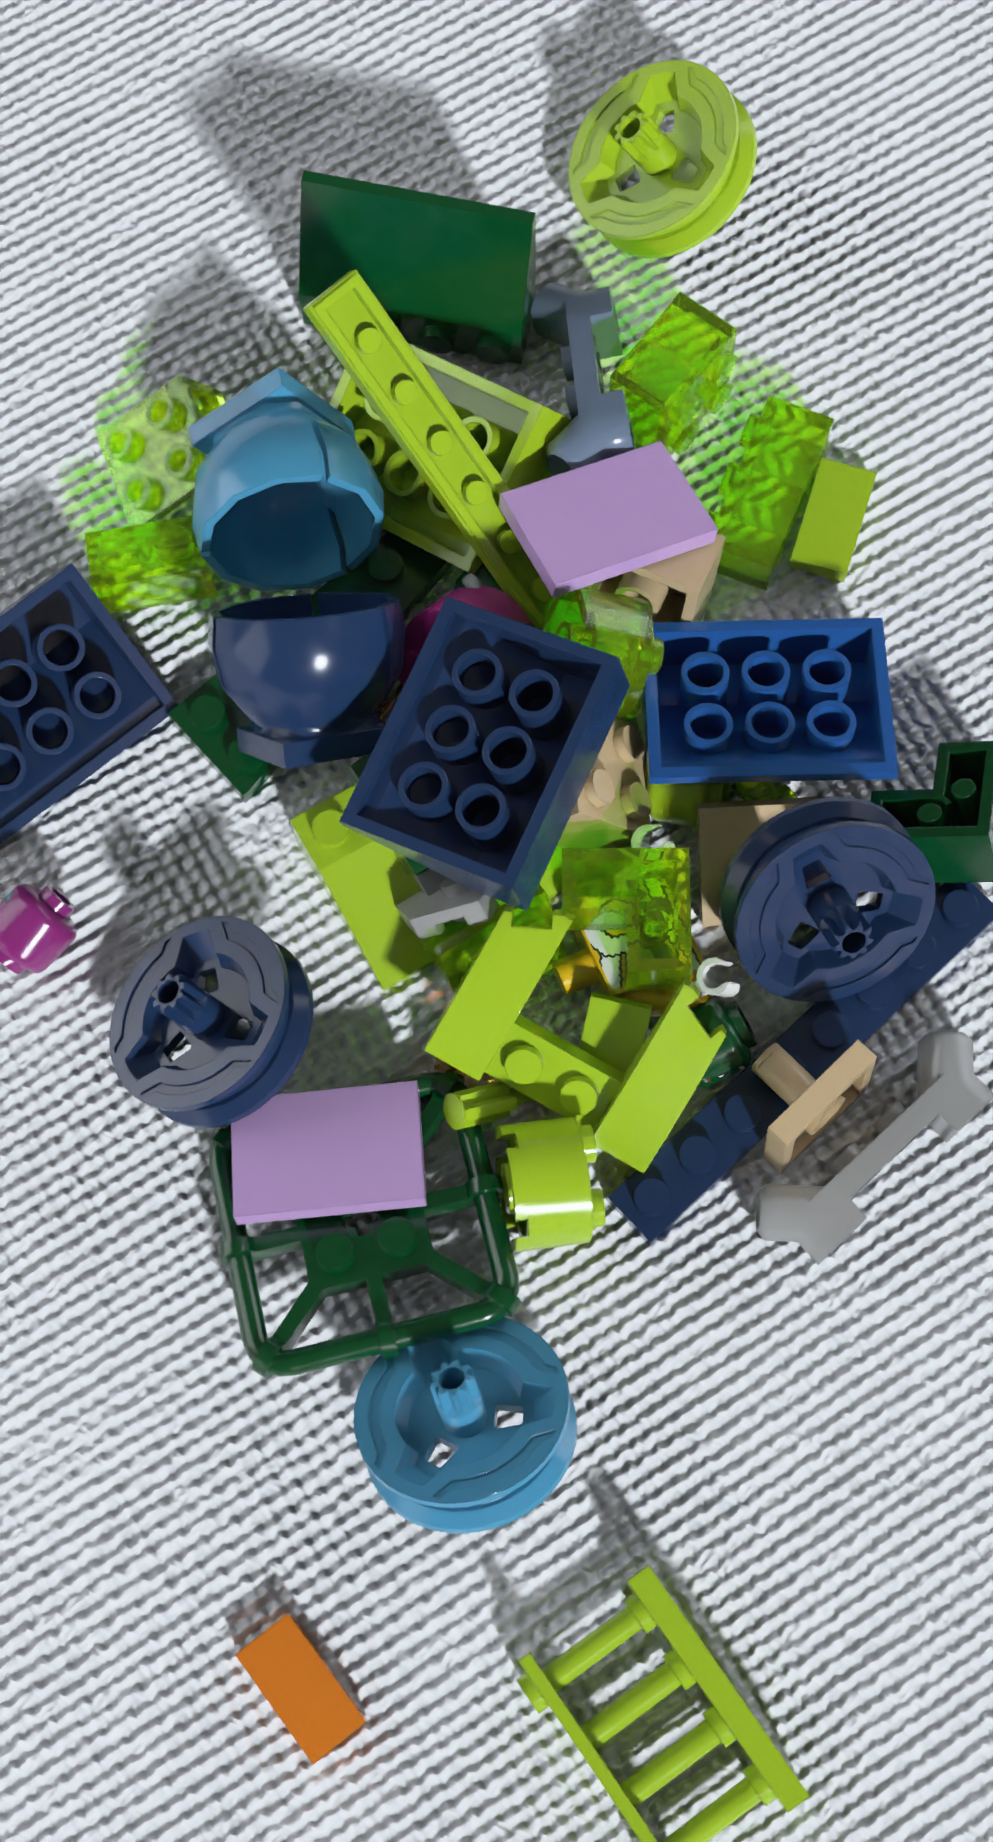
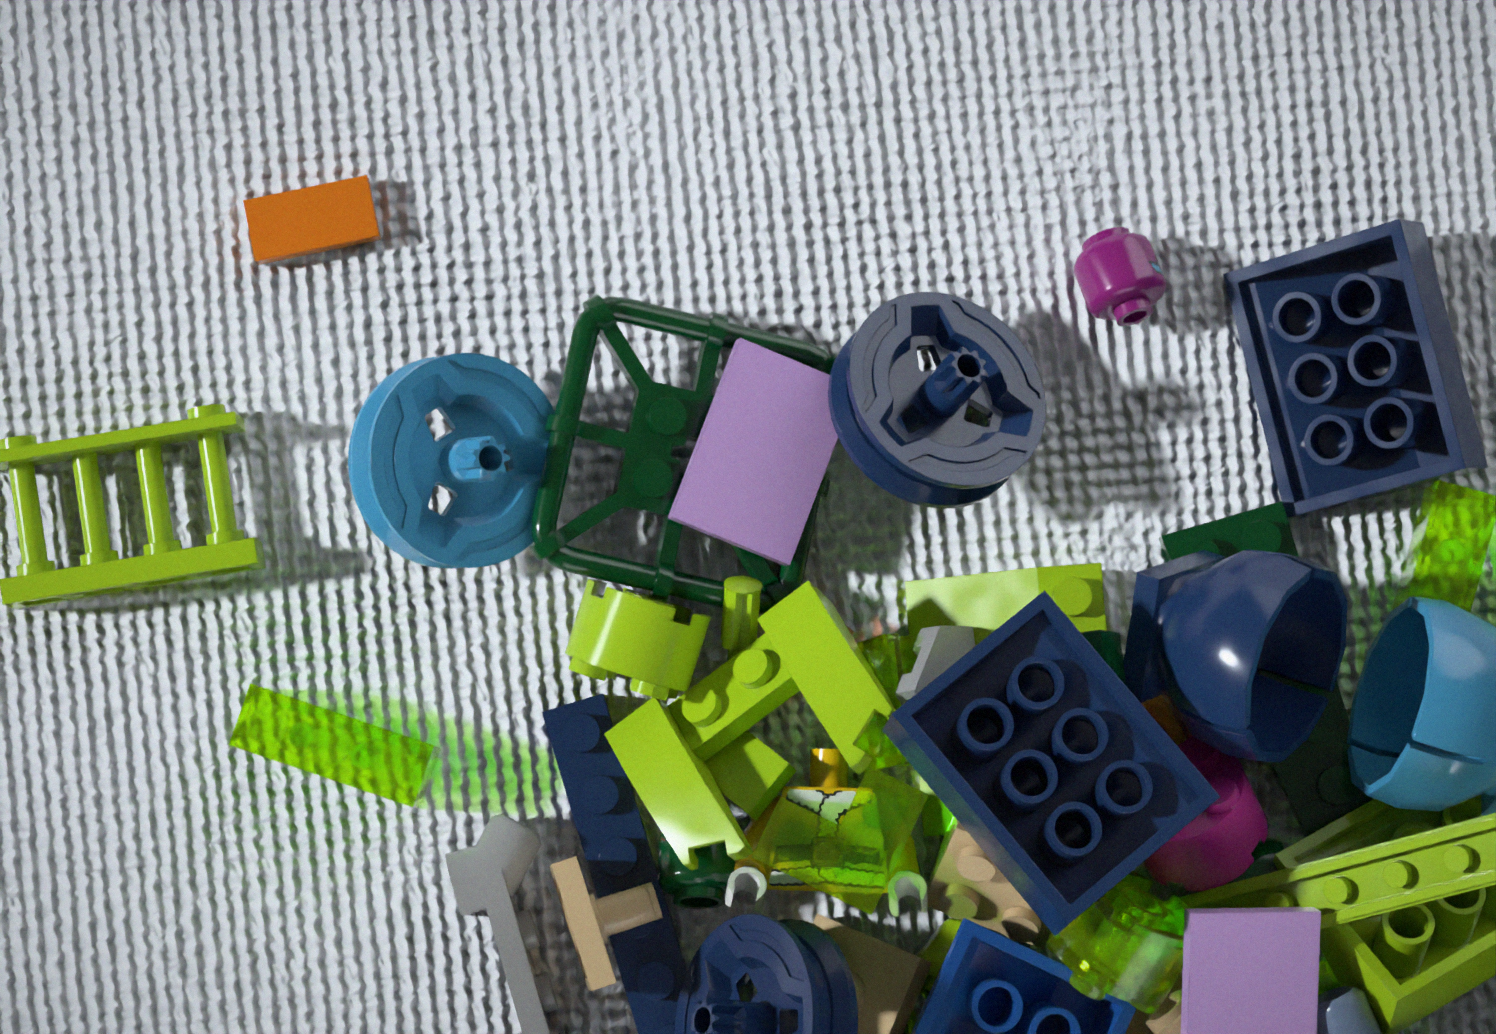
camera: 115 degrees right, 10 degrees up
(776, 1410) = (335, 746): none -> clear neon green brick

